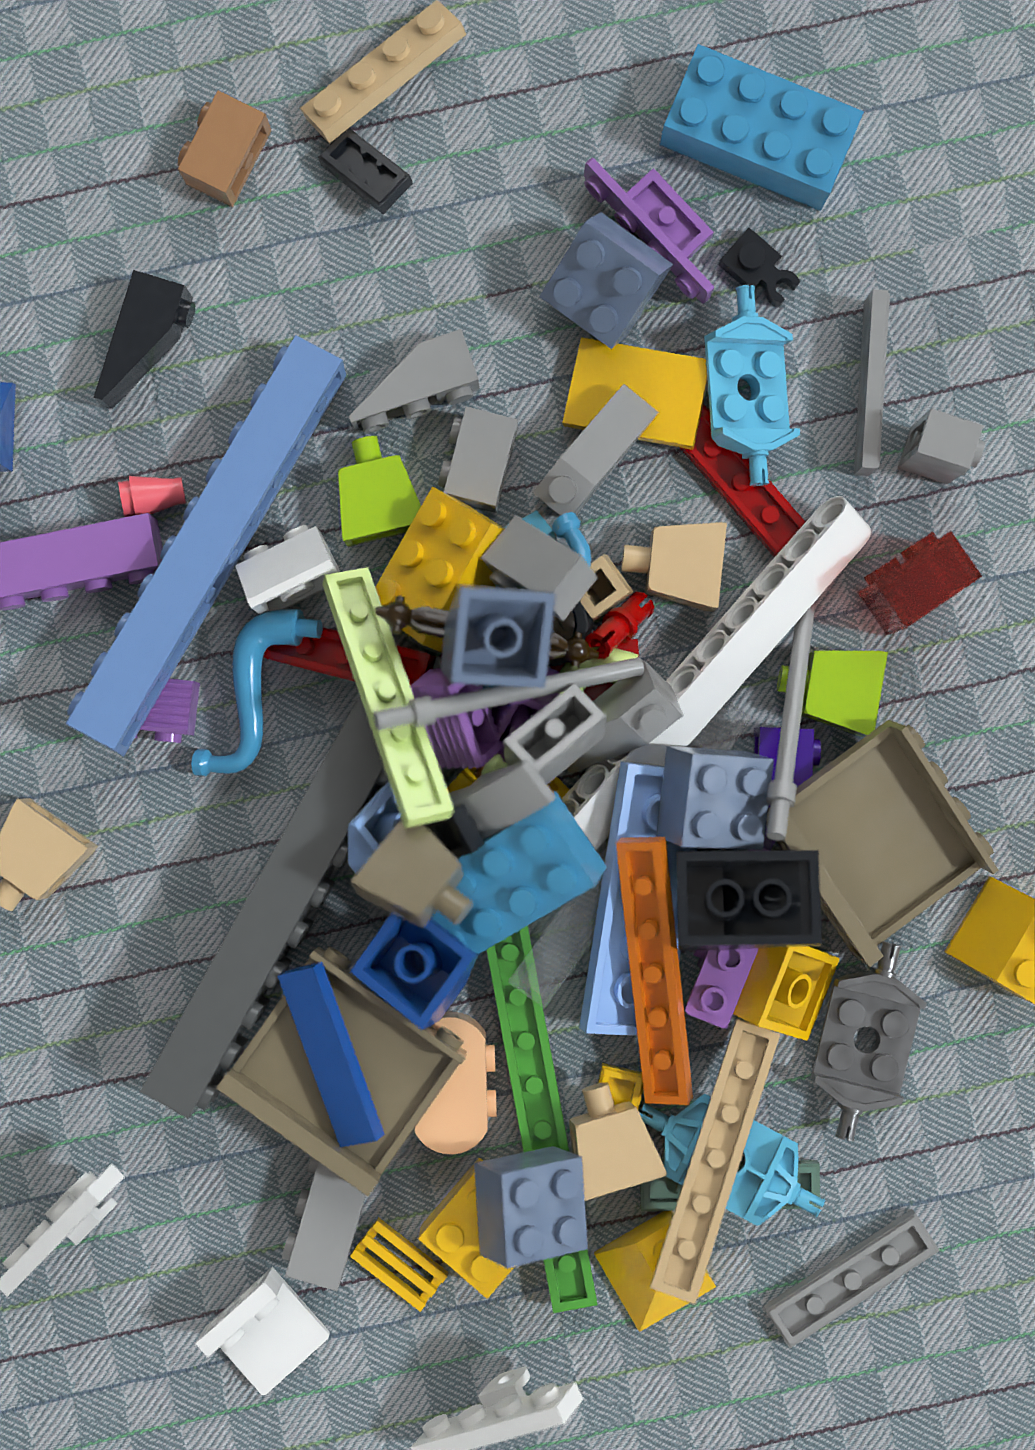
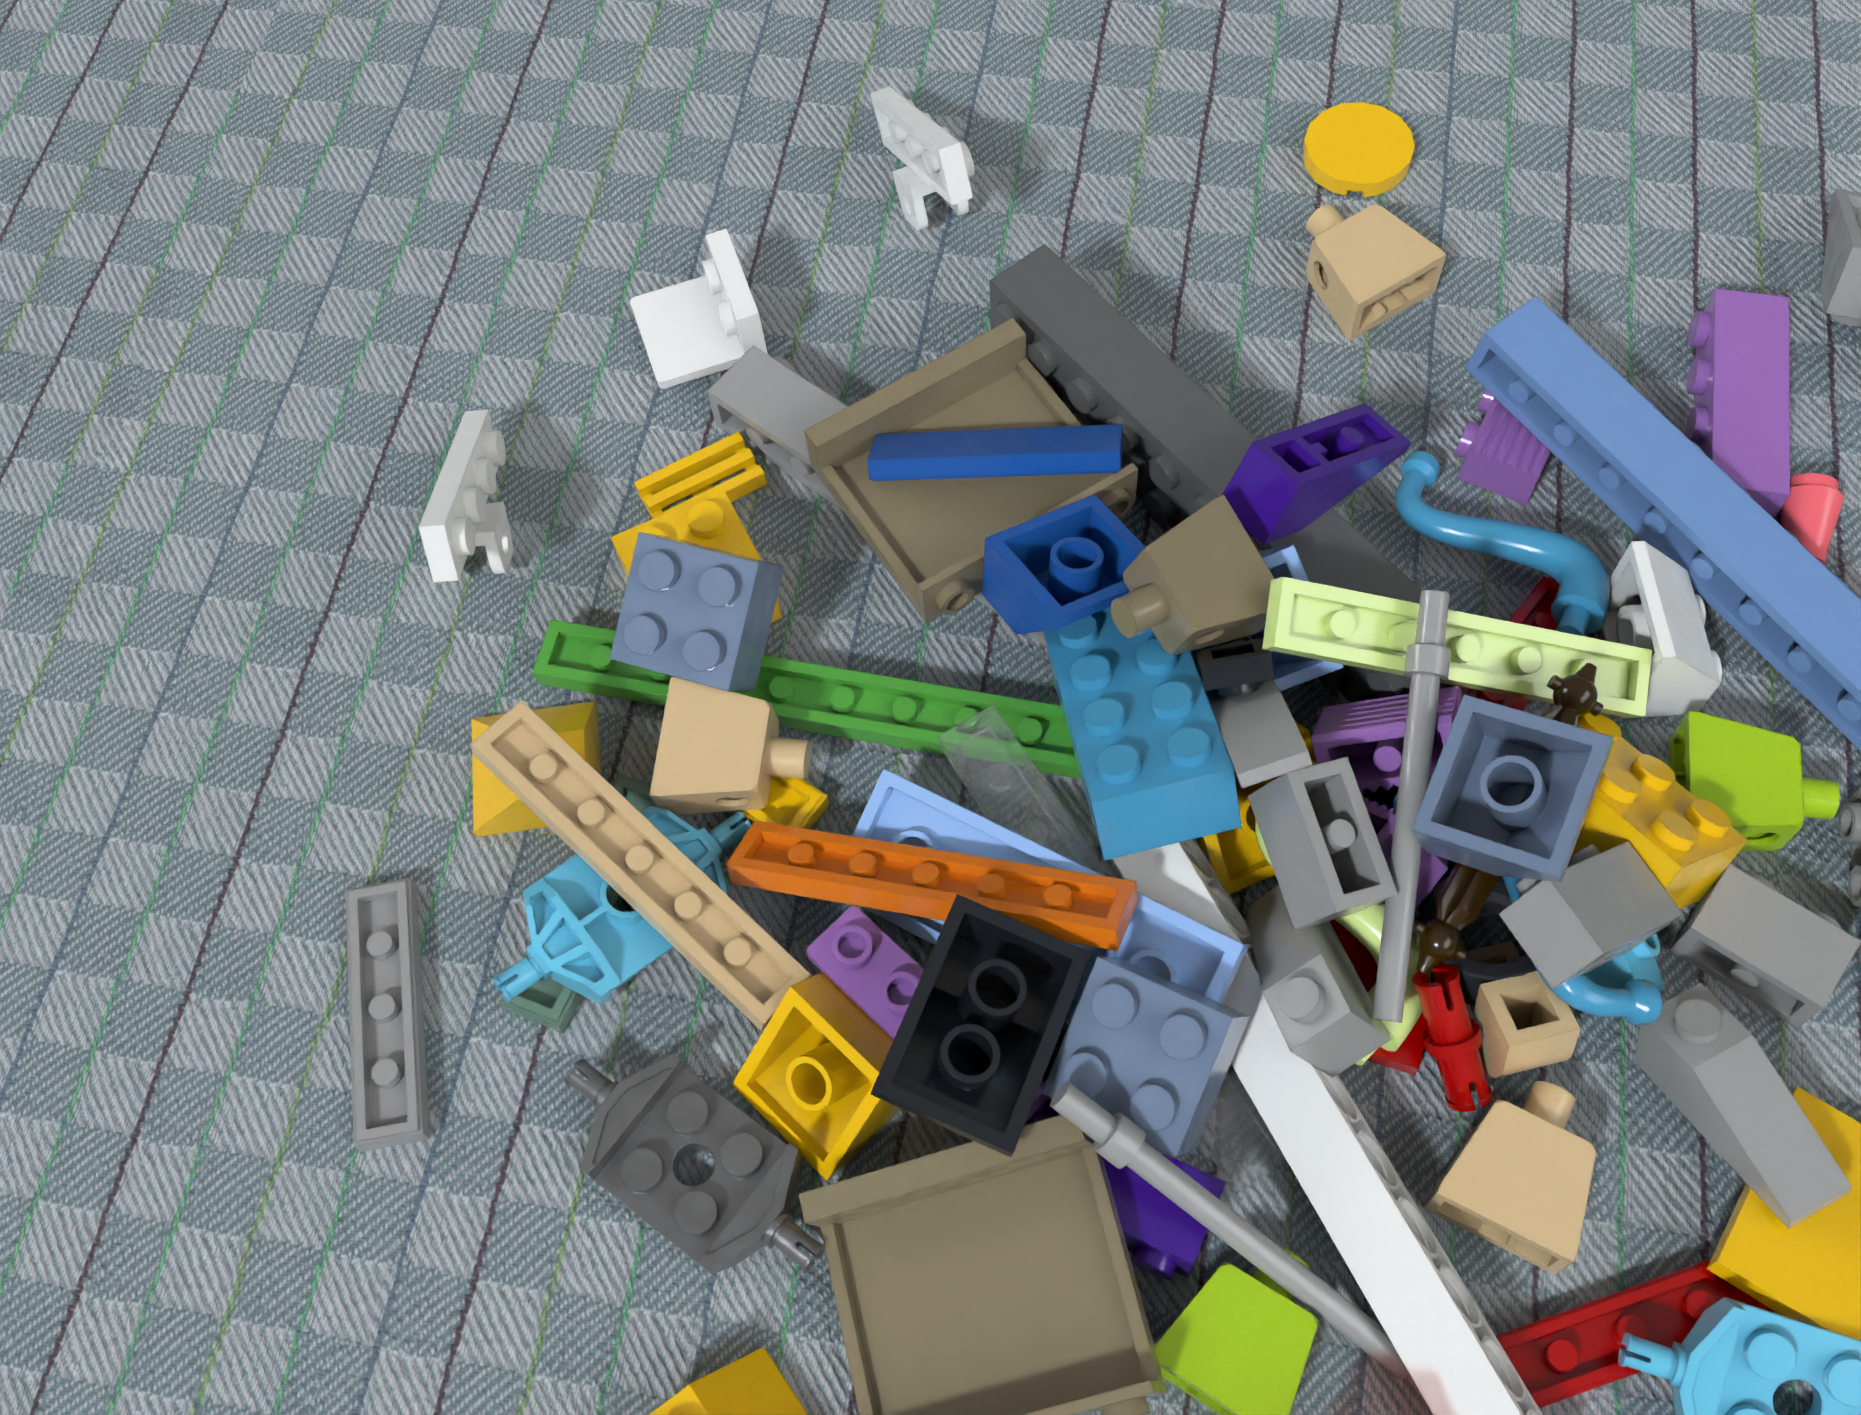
camera: 115 degrees right, 25 degrees down
(281, 830) = (1309, 469): none -> dark purple slope
(462, 1108) = (864, 613): light nougat brick -> none

